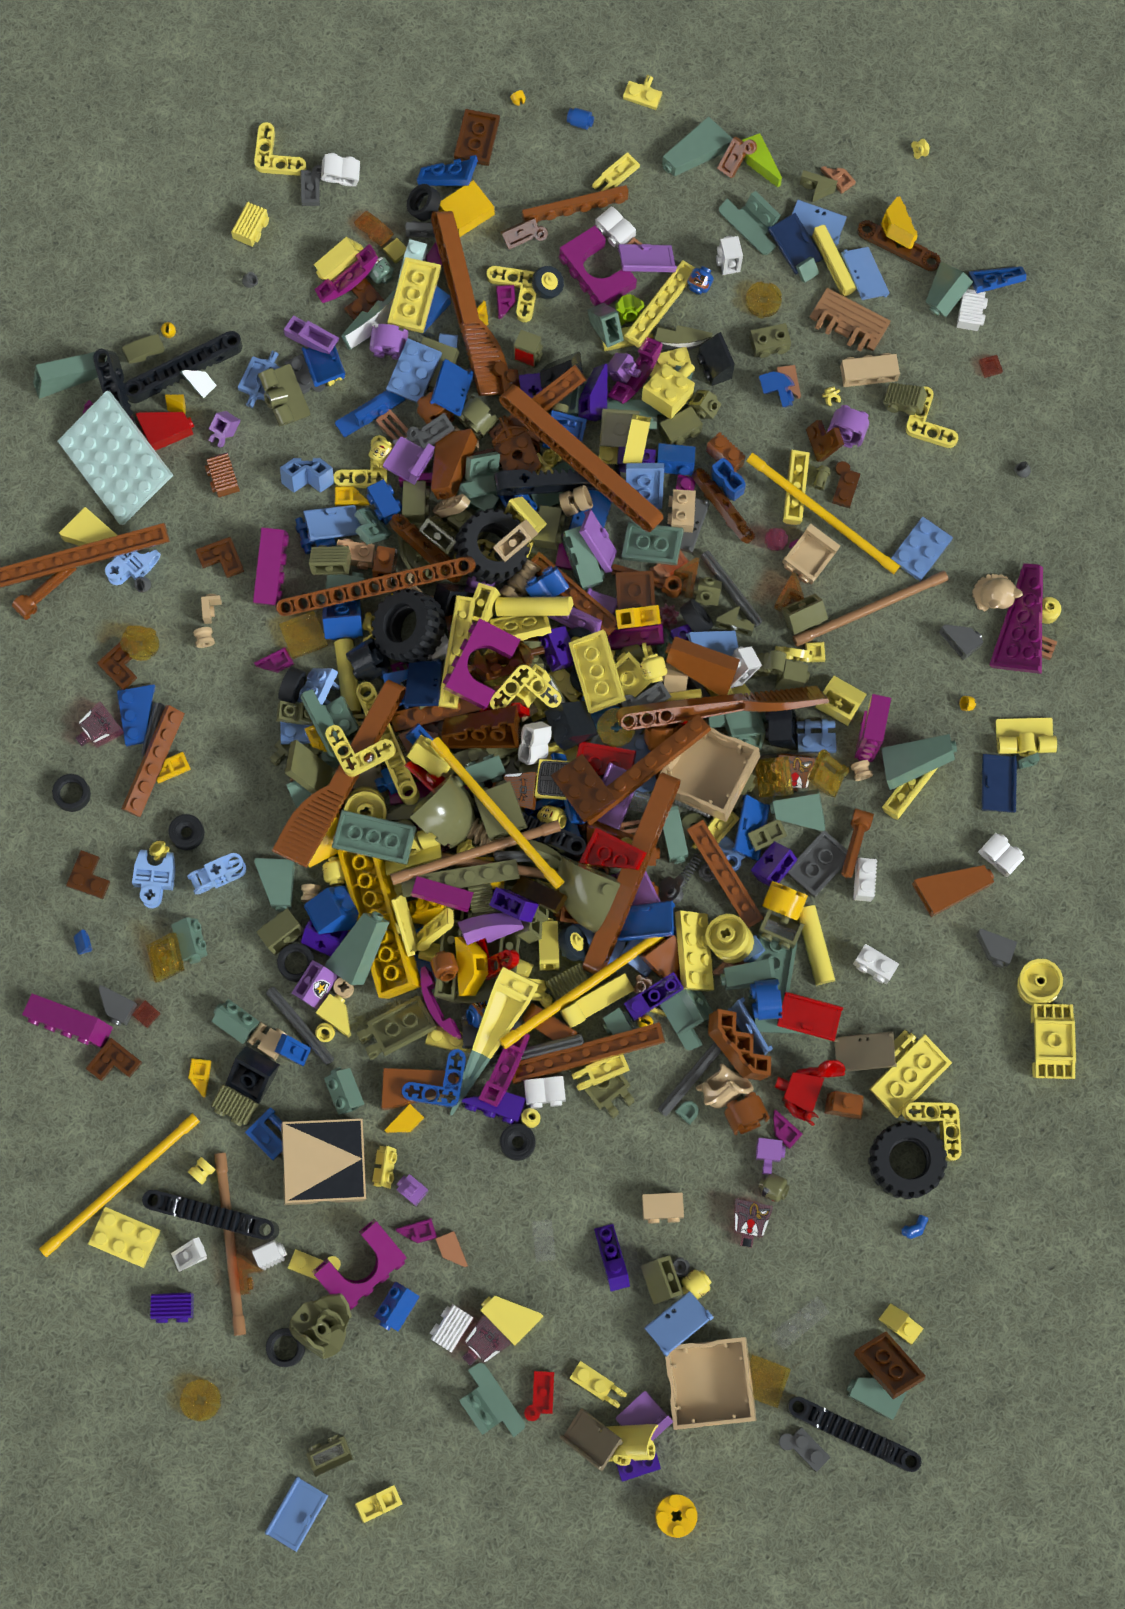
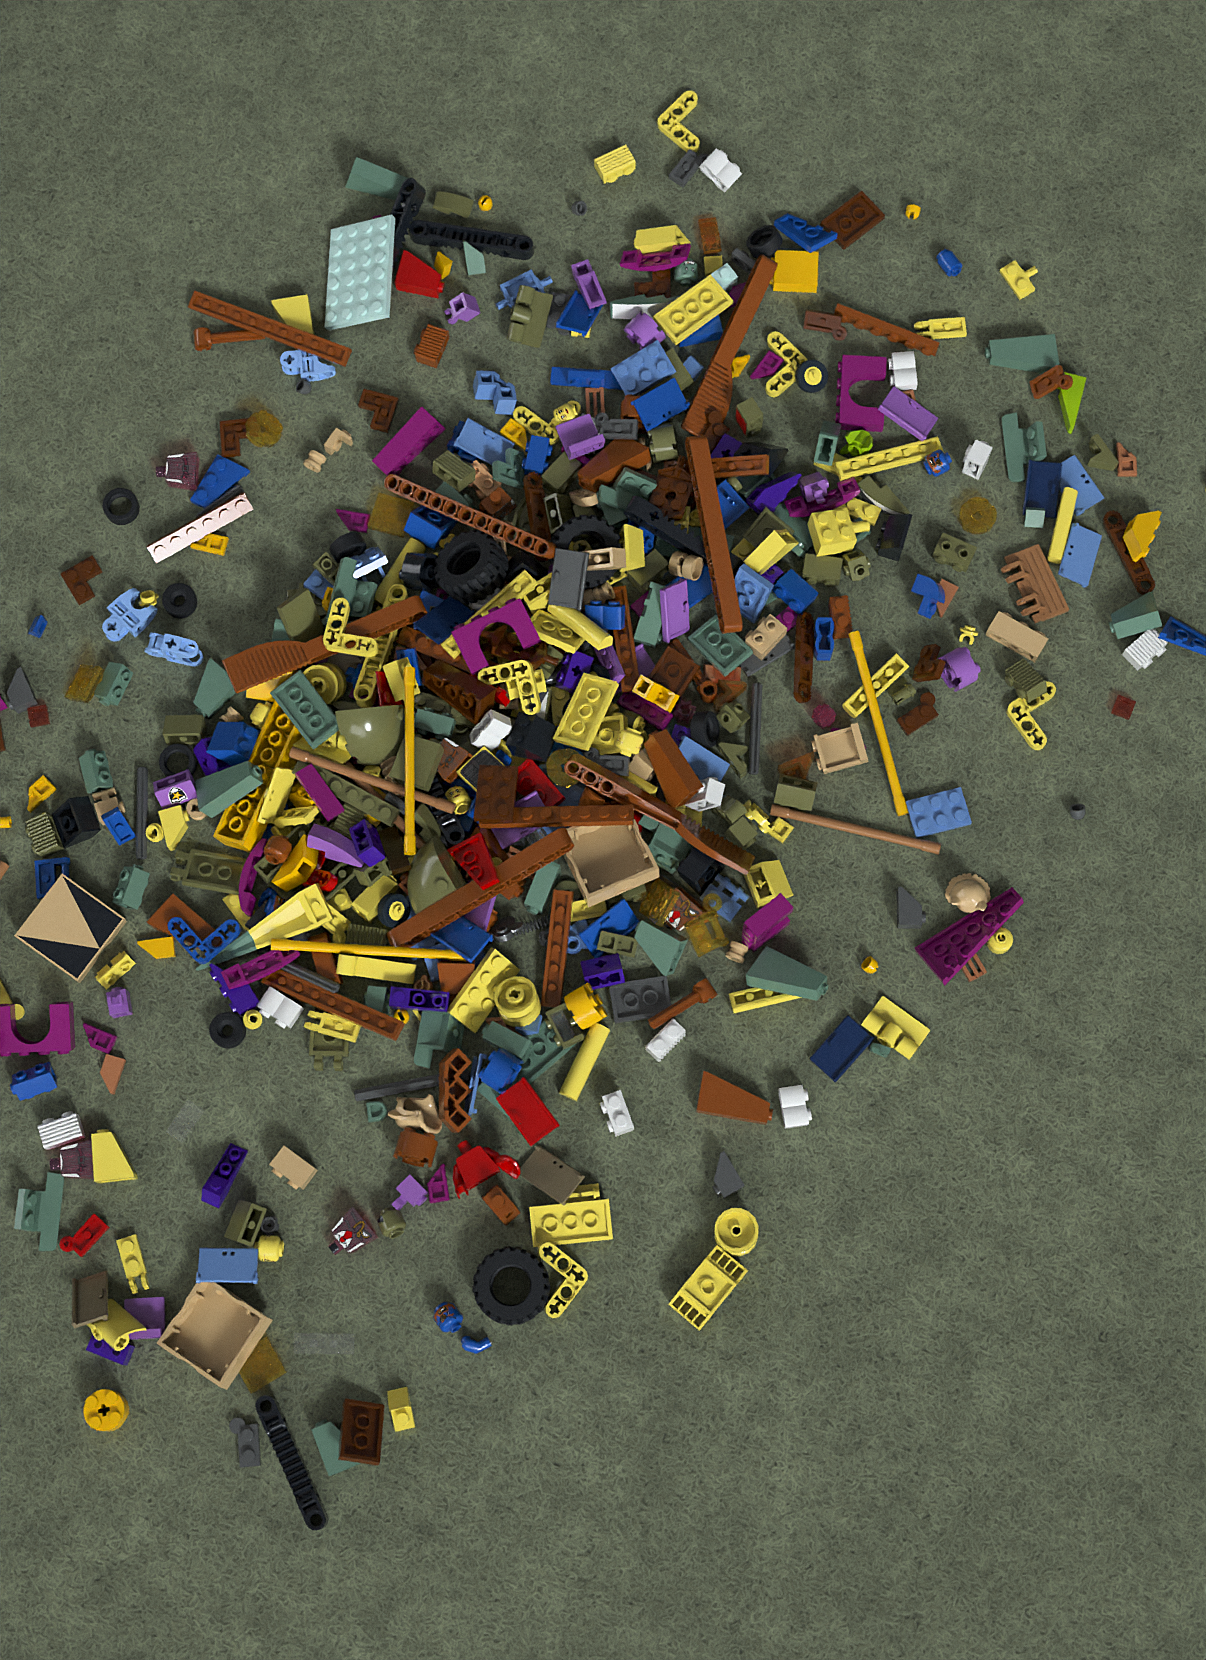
camera: 45 degrees right, 0 degrees up
(458, 1010) = (268, 892): none -> blue piece
(503, 580) = (569, 585): none -> dark grey door
(808, 742) = (706, 900): none -> clear yellow plate
(878, 1224) = (448, 1317): none -> blue head

